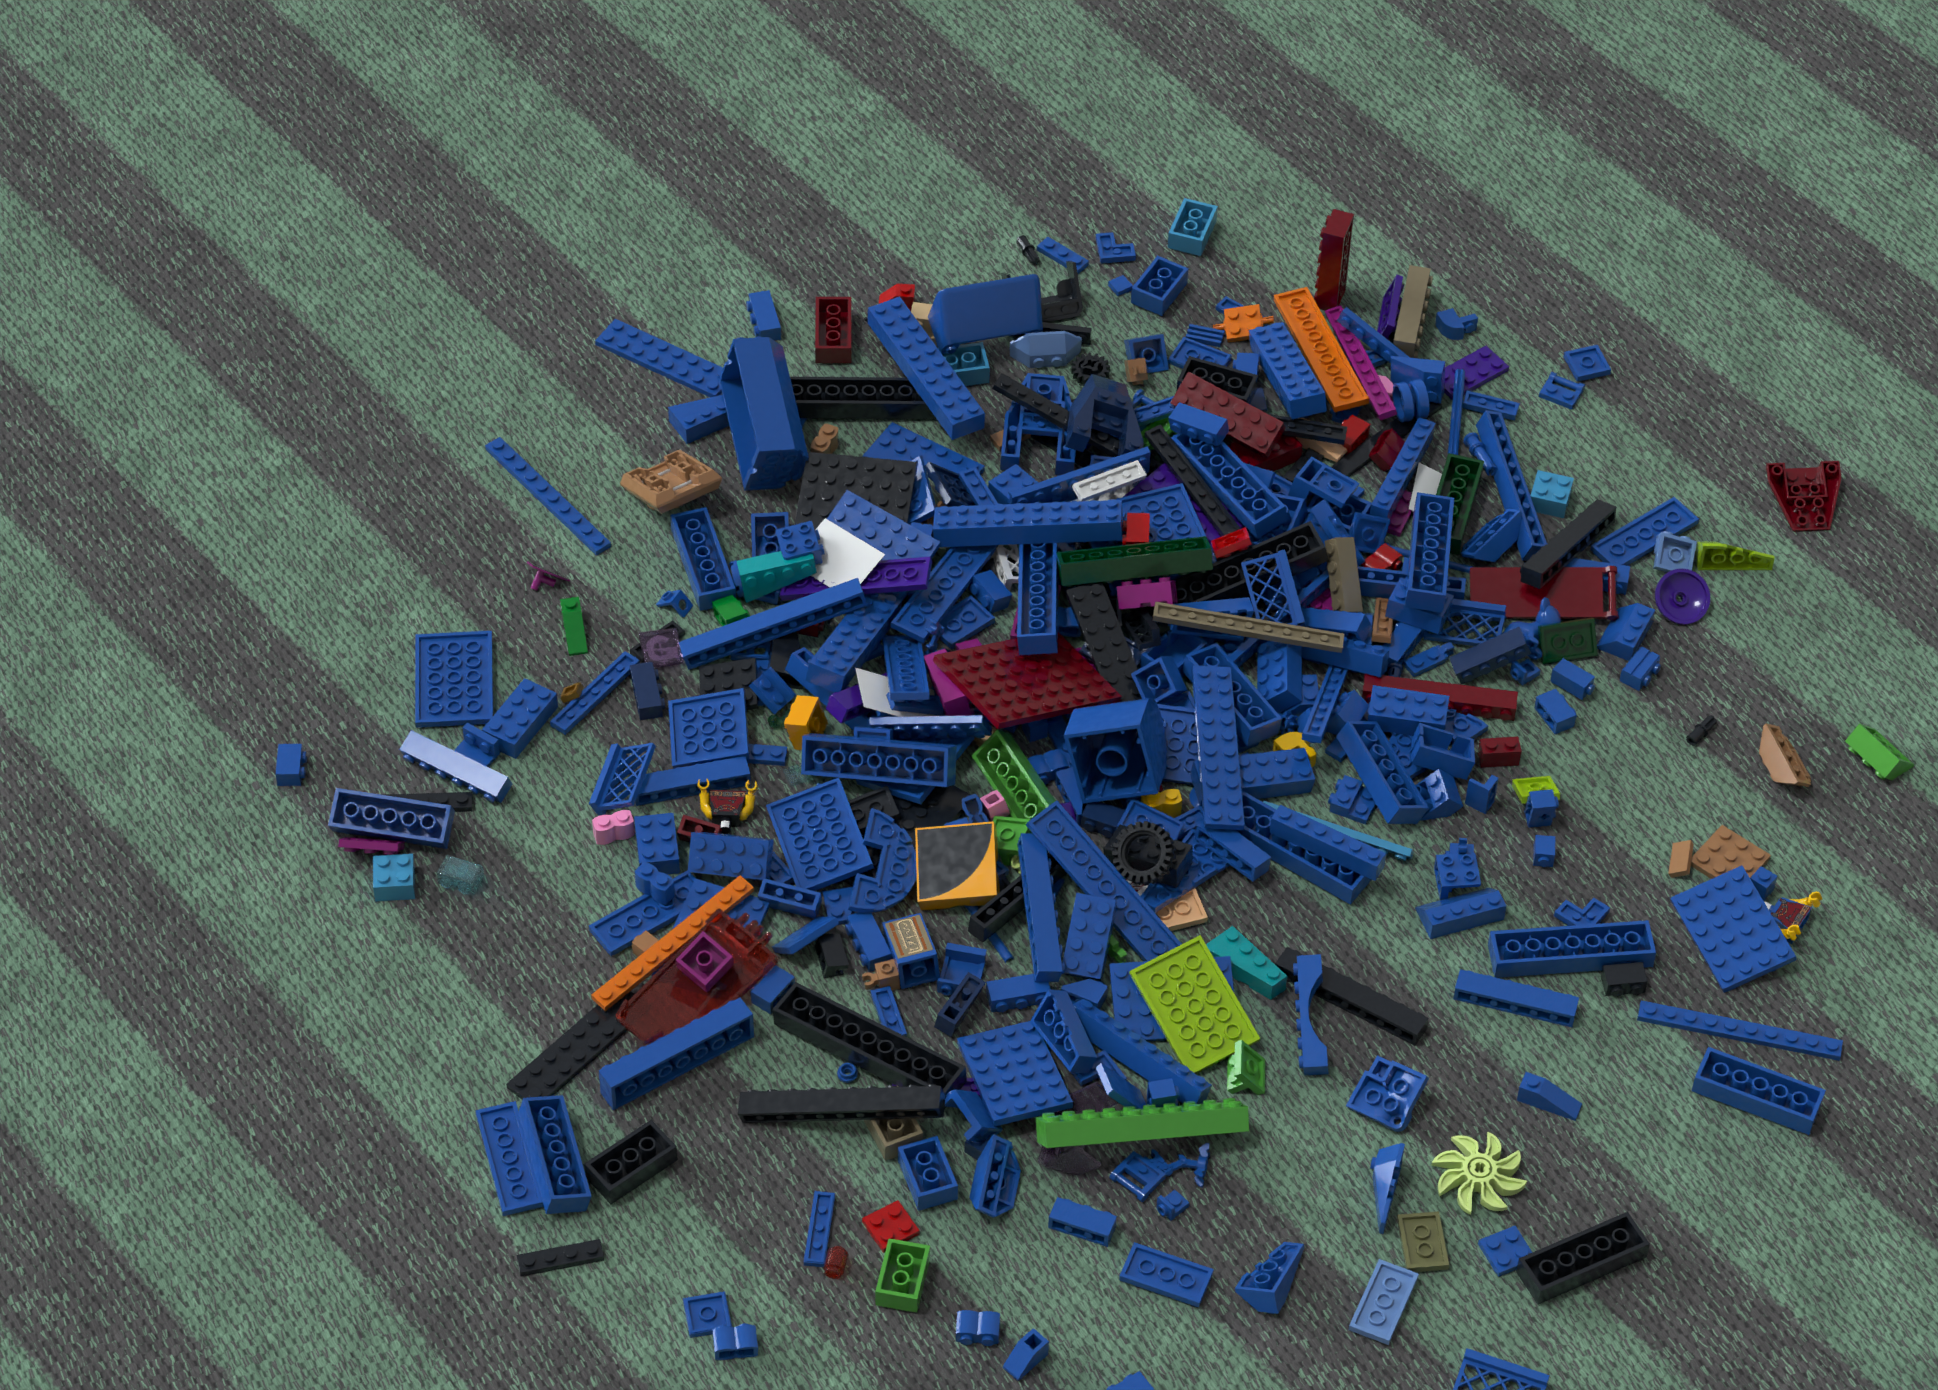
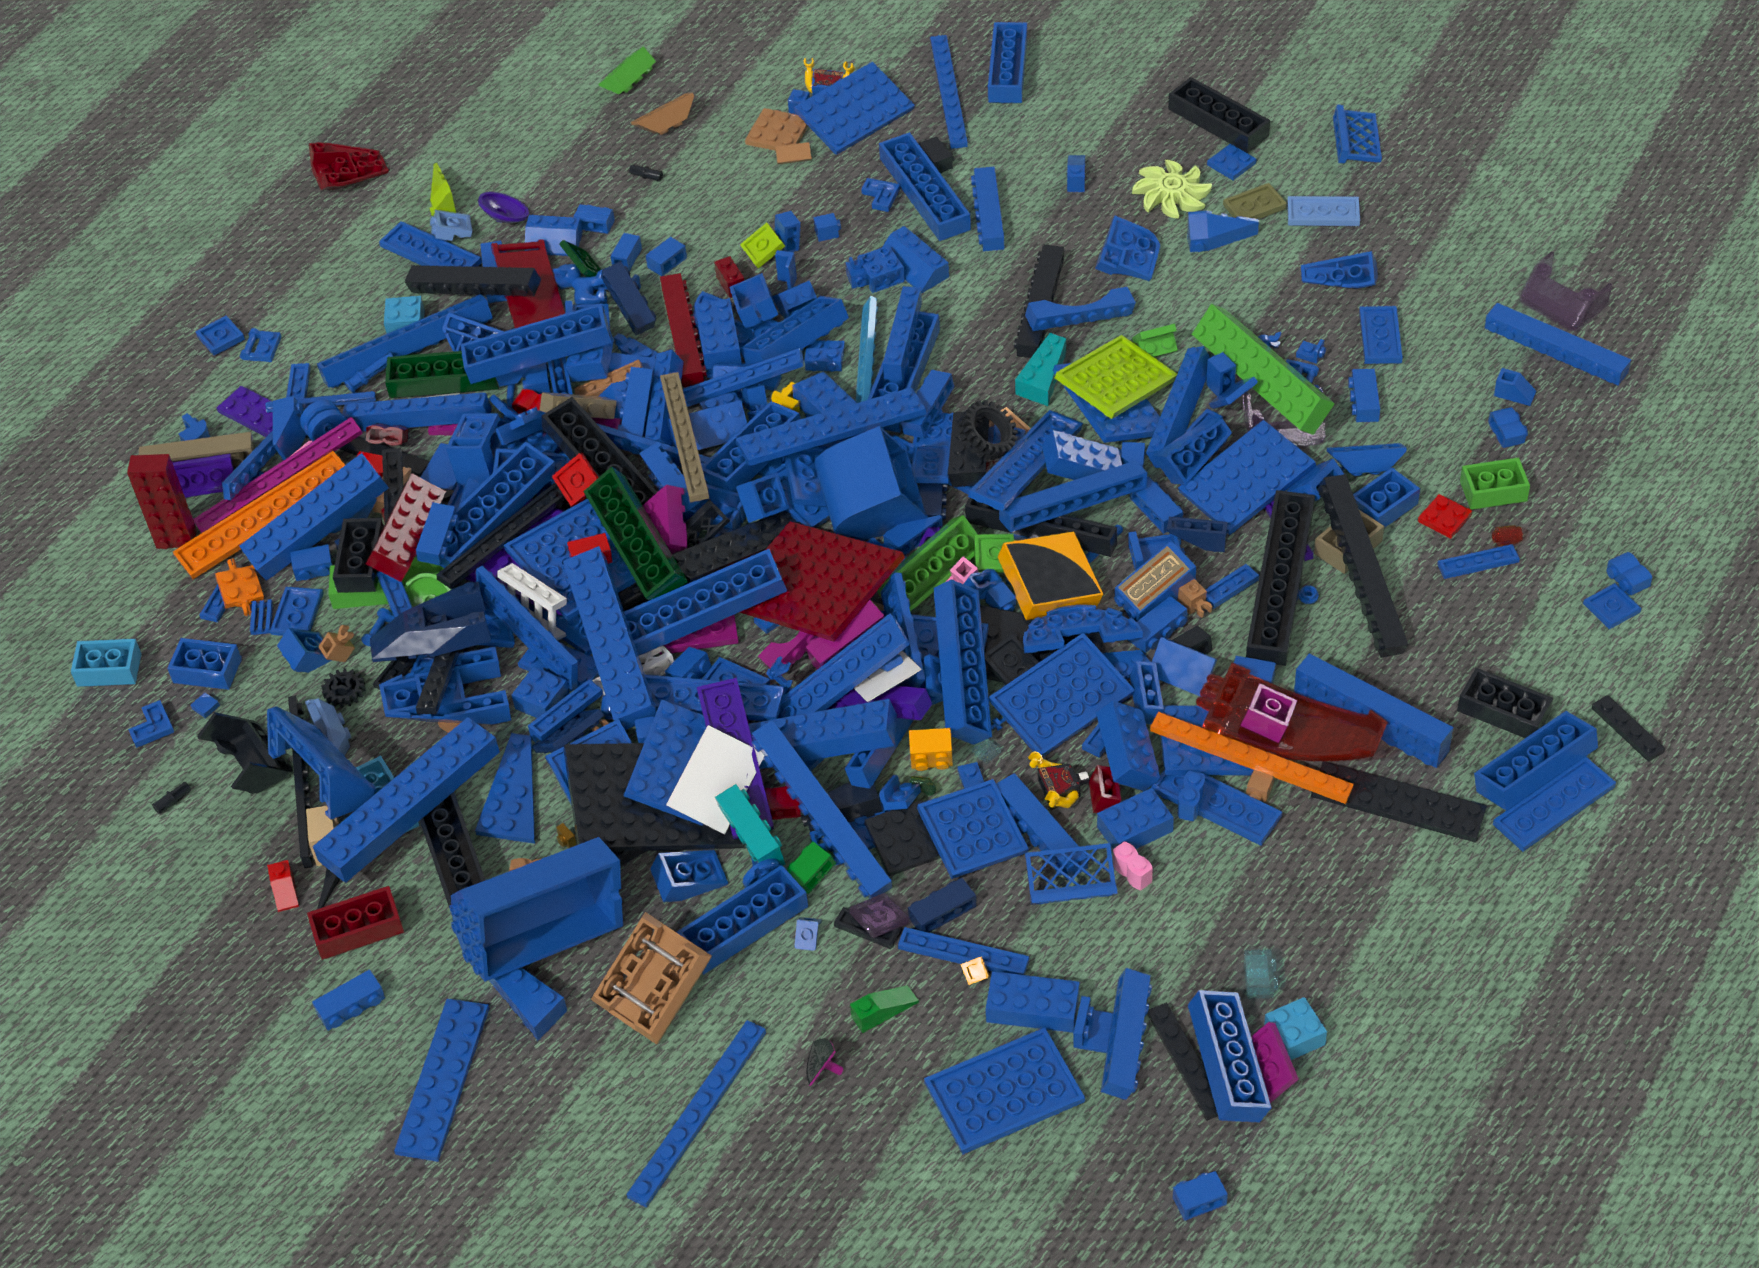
camera: 105 degrees left, 0 degrees up
(800, 541) = (715, 805): blue bracket -> none
(1061, 254) = (170, 767): blue plate -> none
(1287, 584) = (627, 418): blue fence -> none

